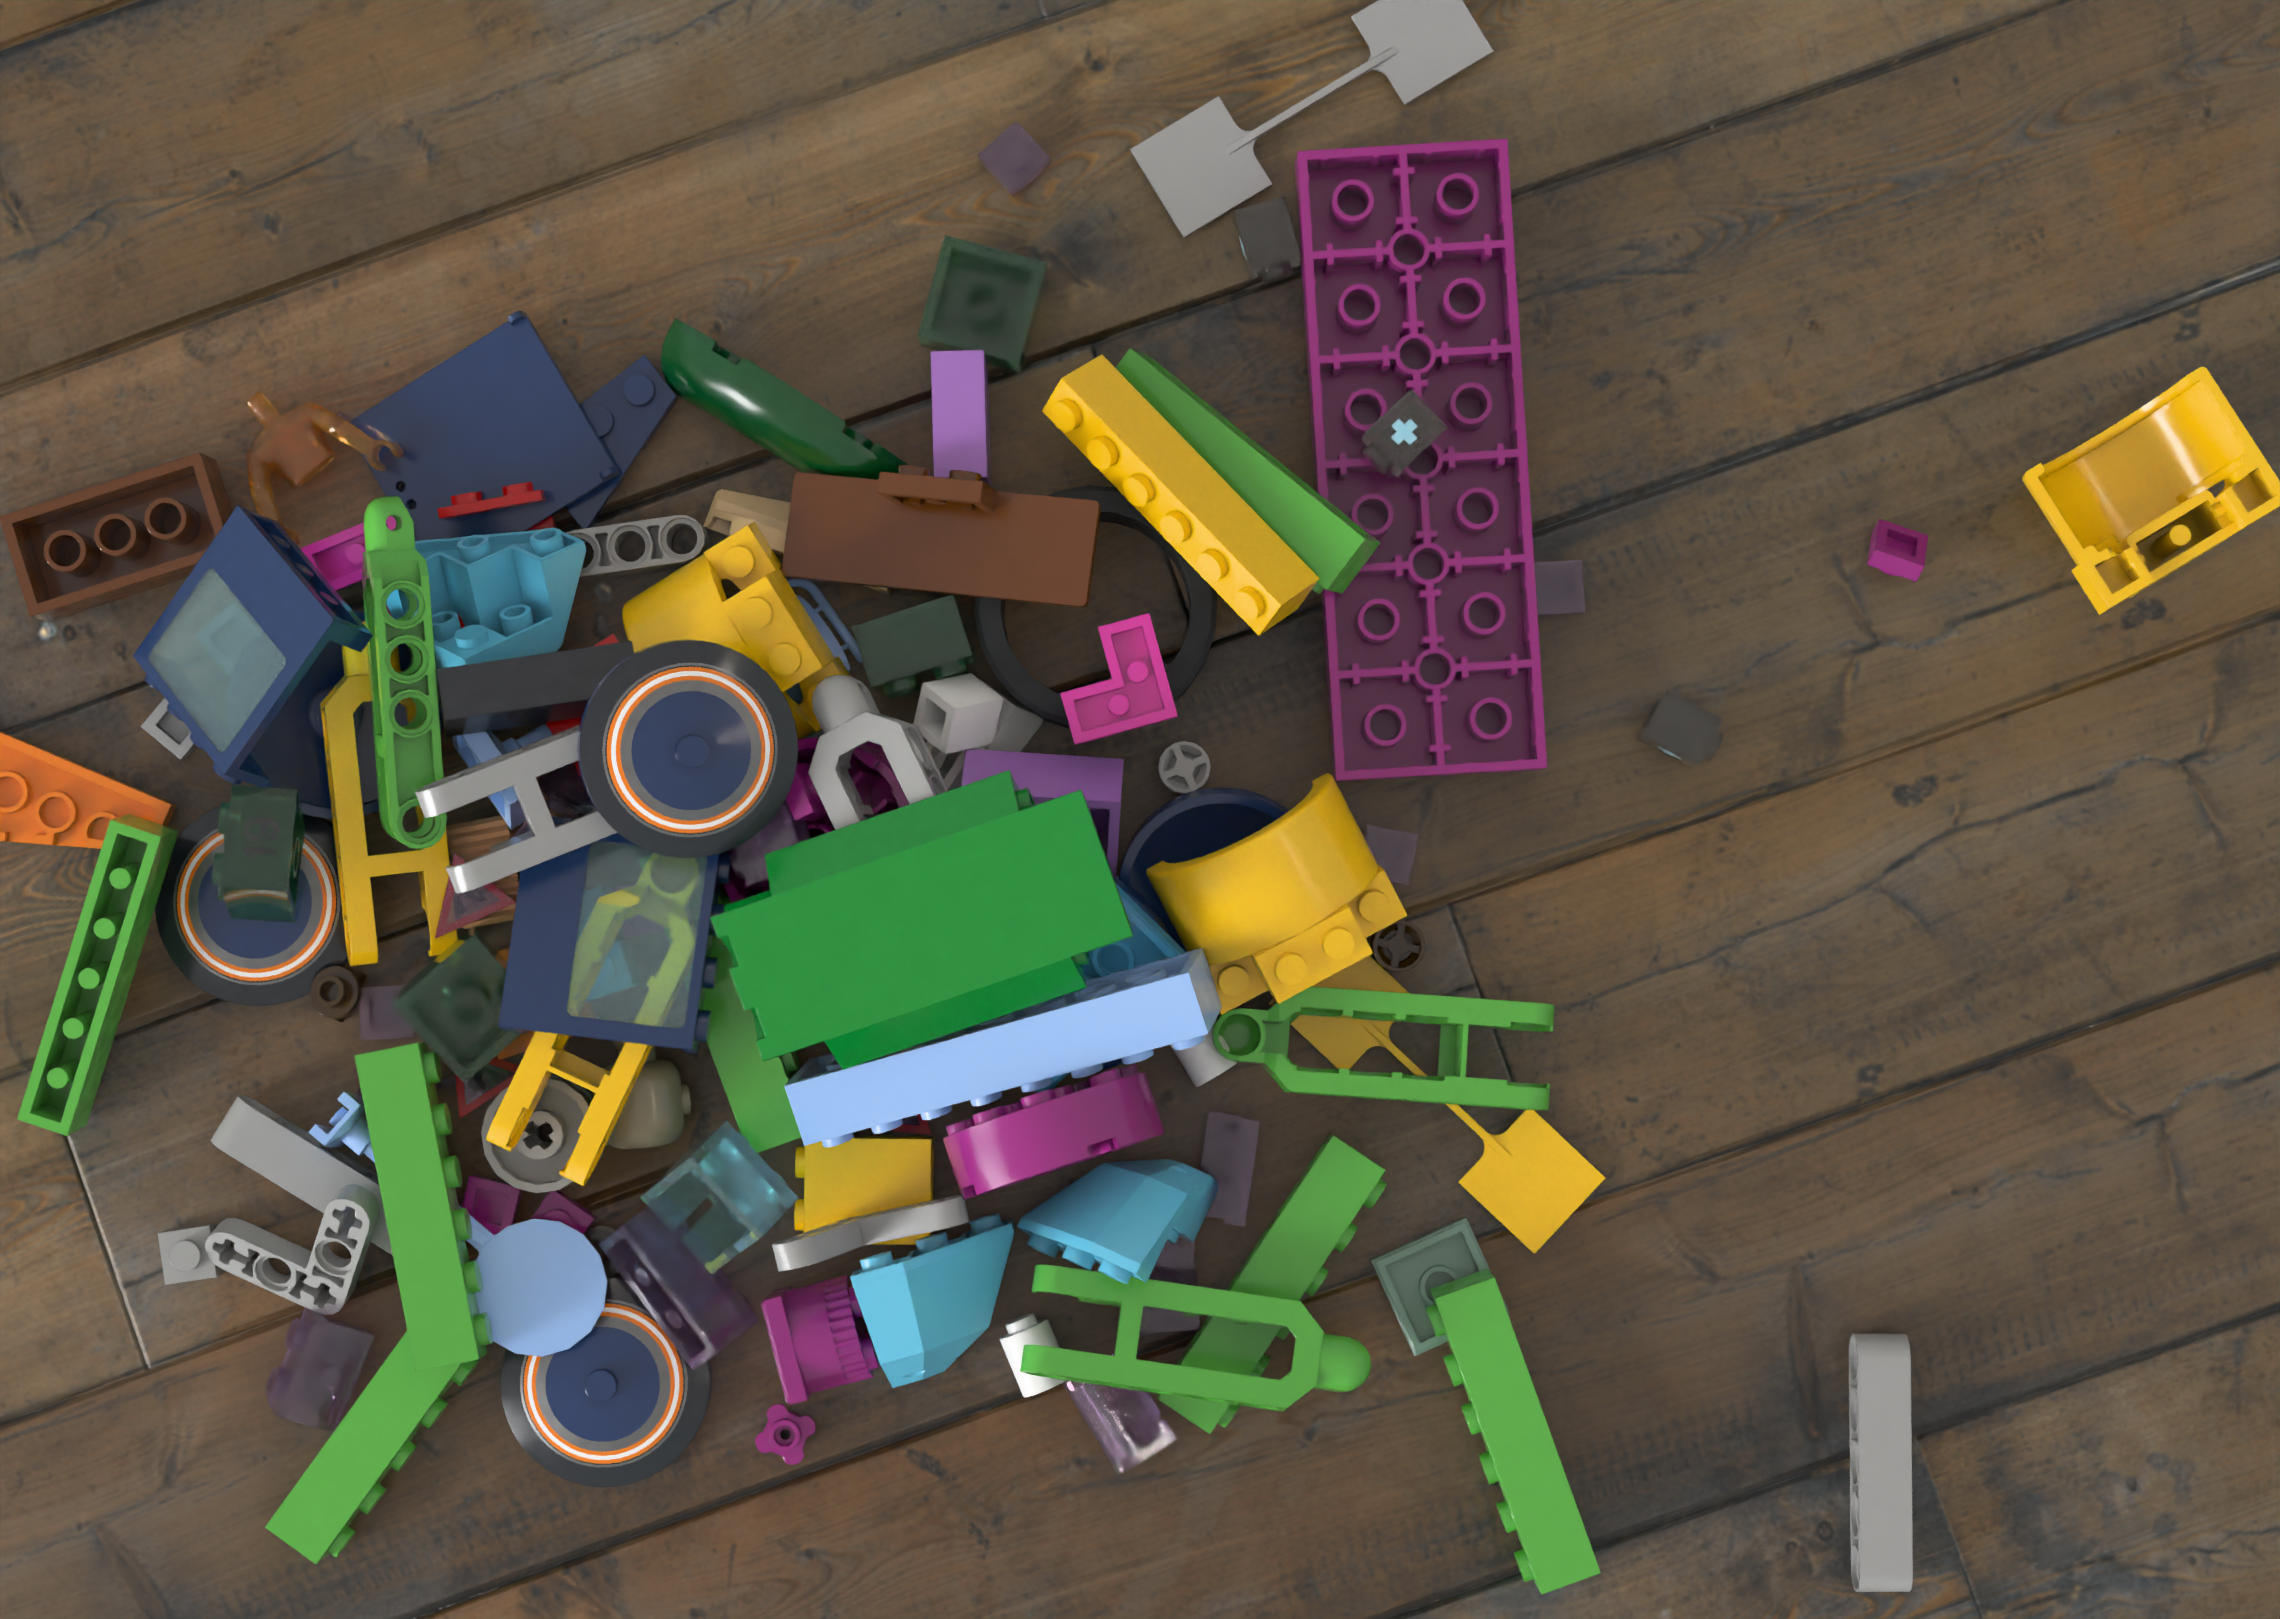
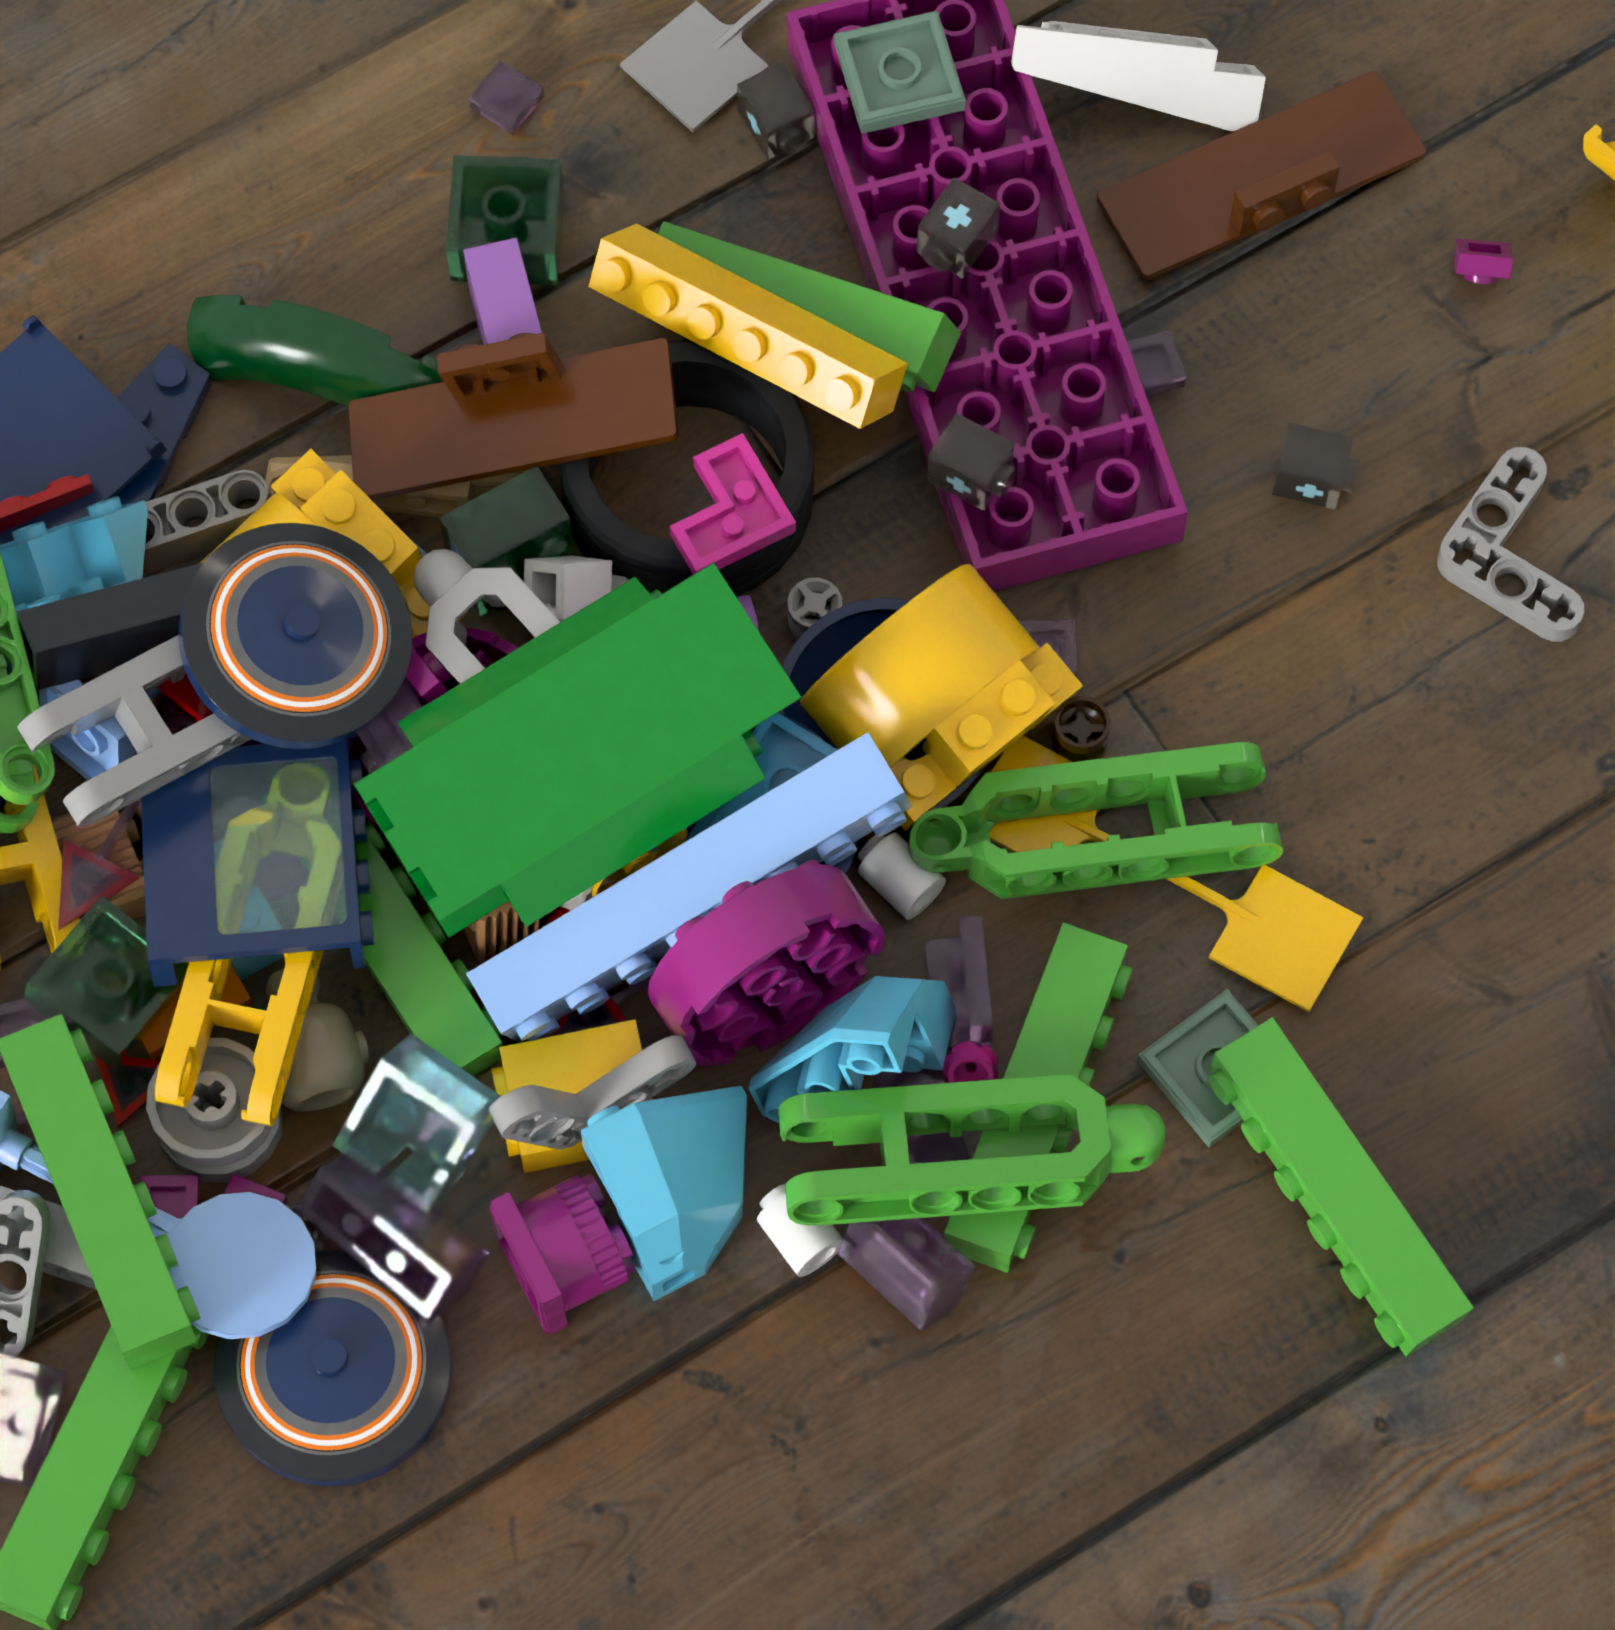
camera: 15 degrees left, 20 degrees down
(778, 1420) = (551, 1392): magenta plate -> none
(1220, 1242) = (970, 1052): none -> dark pink plate
(1358, 683) = (972, 462): none -> clear smoke brick
(1390, 245) = (899, 72): none -> sand green tile
(1628, 280) = (1143, 69): none -> white wedge
(1713, 410) = (1260, 175): none -> reddish brown bracket
(1821, 837) = (1487, 545): none -> light grey beam

